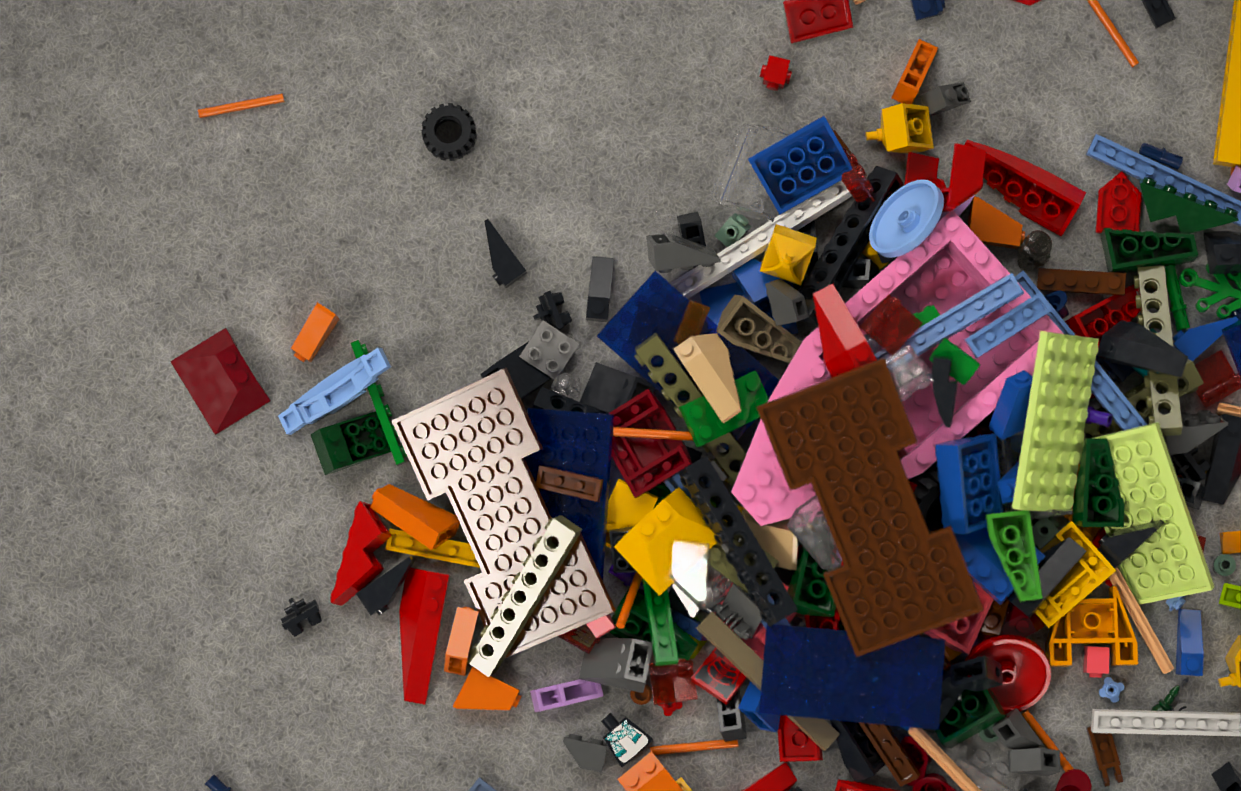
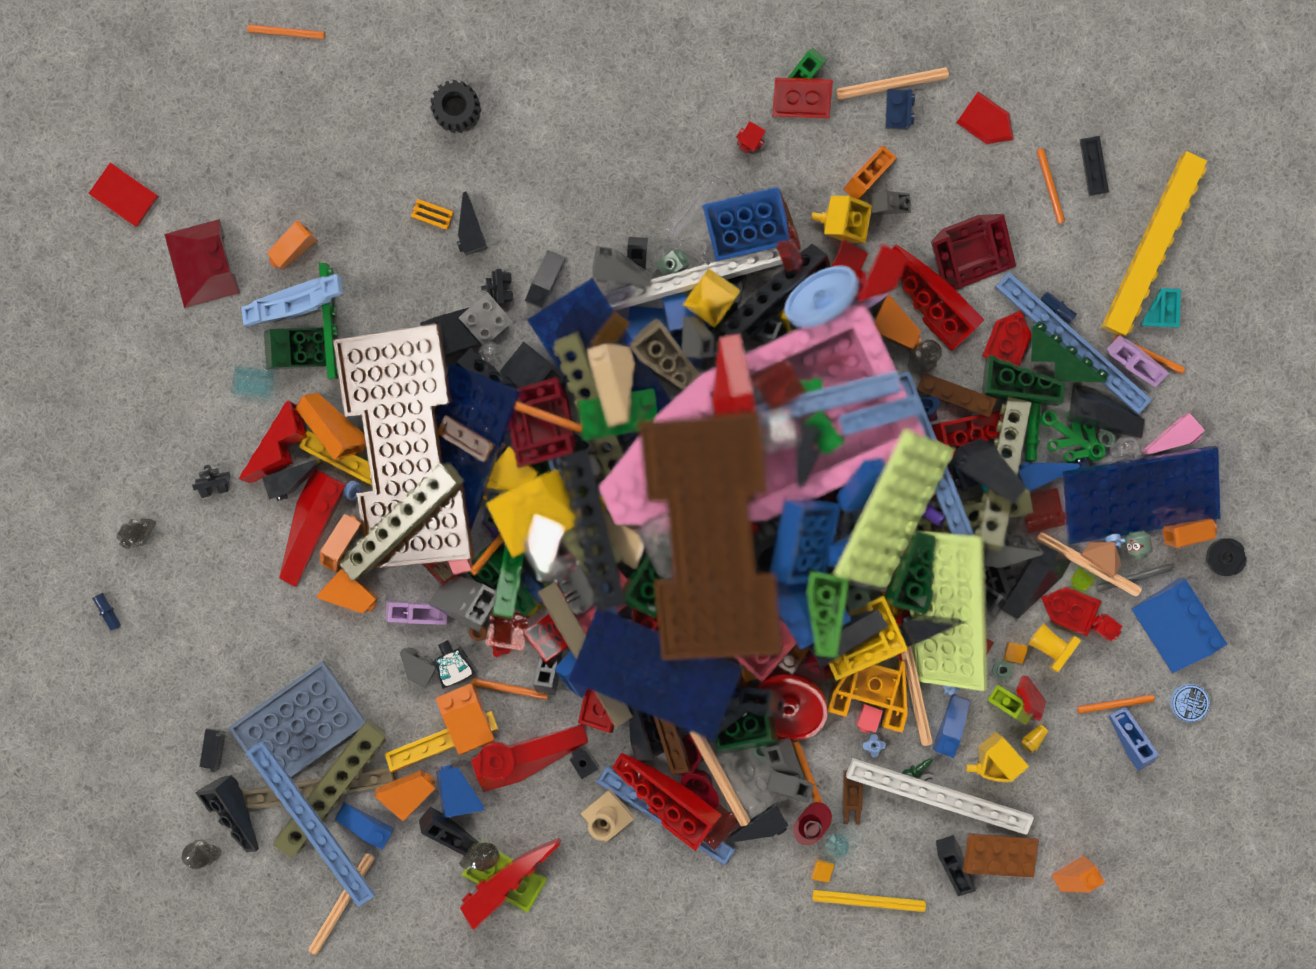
camera: 20 degrees right, 5 degrees up
(114, 331) = (123, 194): none -> red tile
(232, 696) = (135, 533): none -> clear smoke head
(312, 493) = (252, 382): none -> clear light blue plate
(456, 254) = (416, 209): none -> light orange tile
(457, 578) = (351, 489): none -> medium blue tile
(1051, 122) = (973, 250): none -> dark red slope

